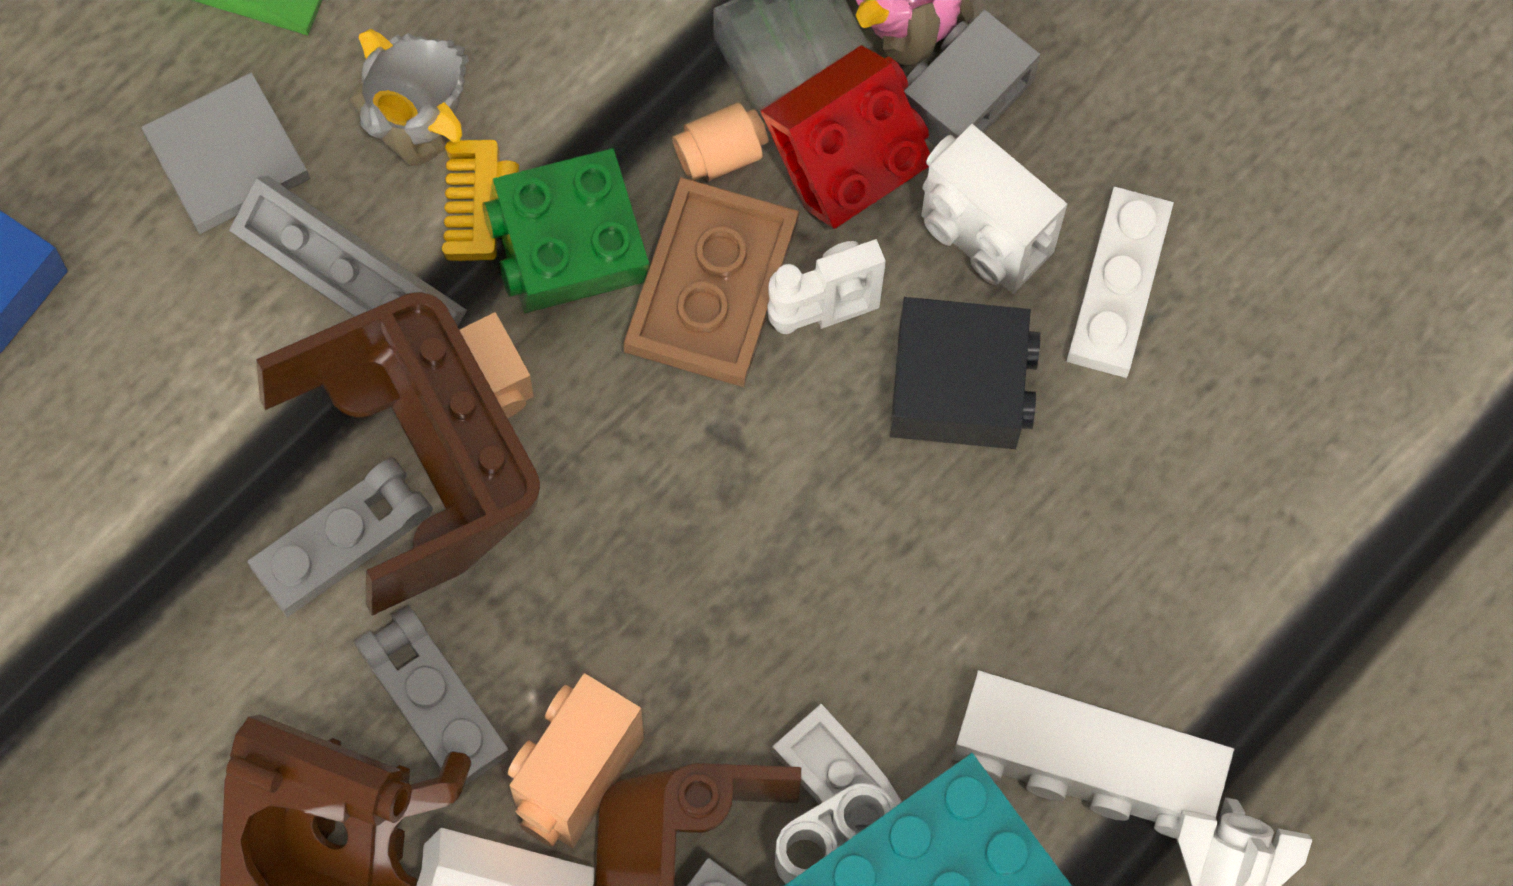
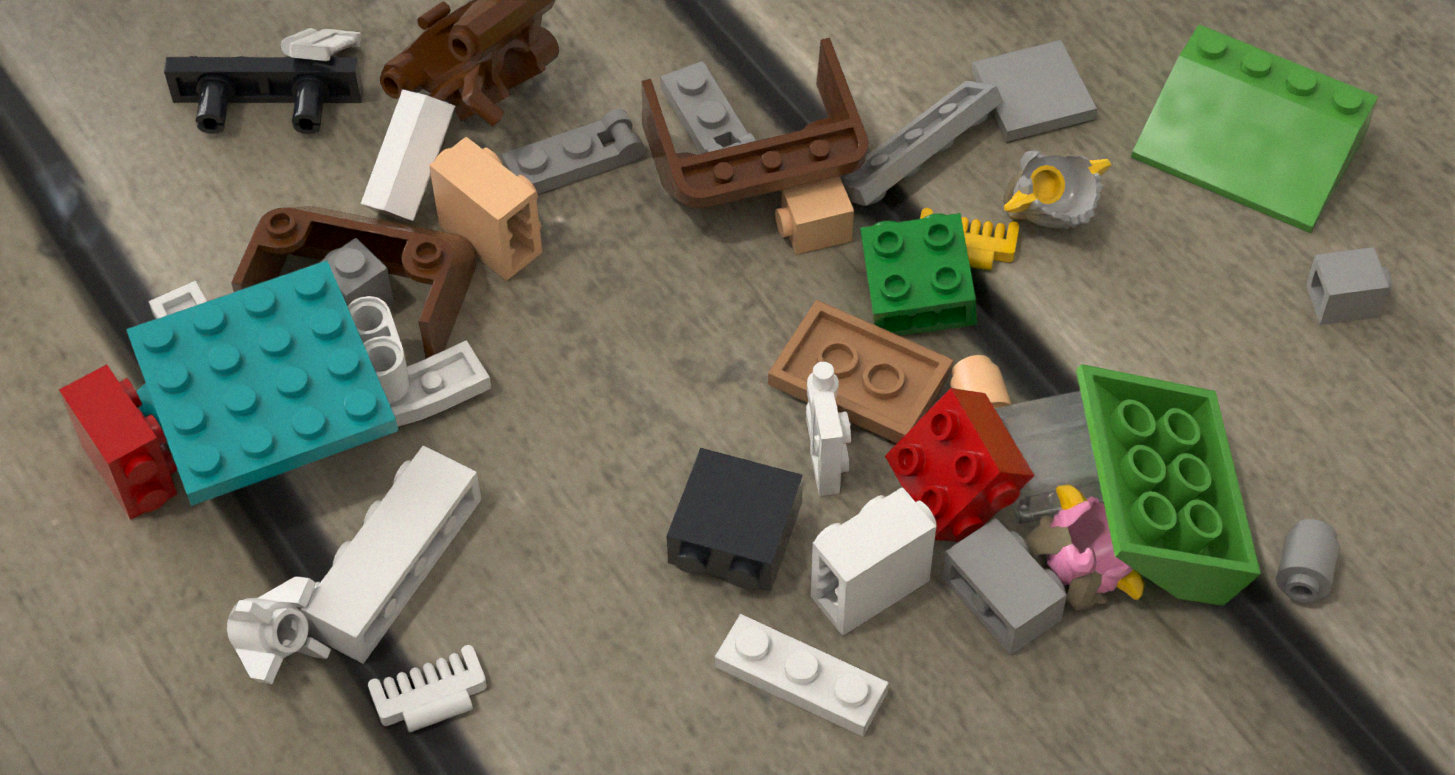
camera: 105 degrees right, 15 degrees down
(1255, 662) = (433, 701): none -> white piece

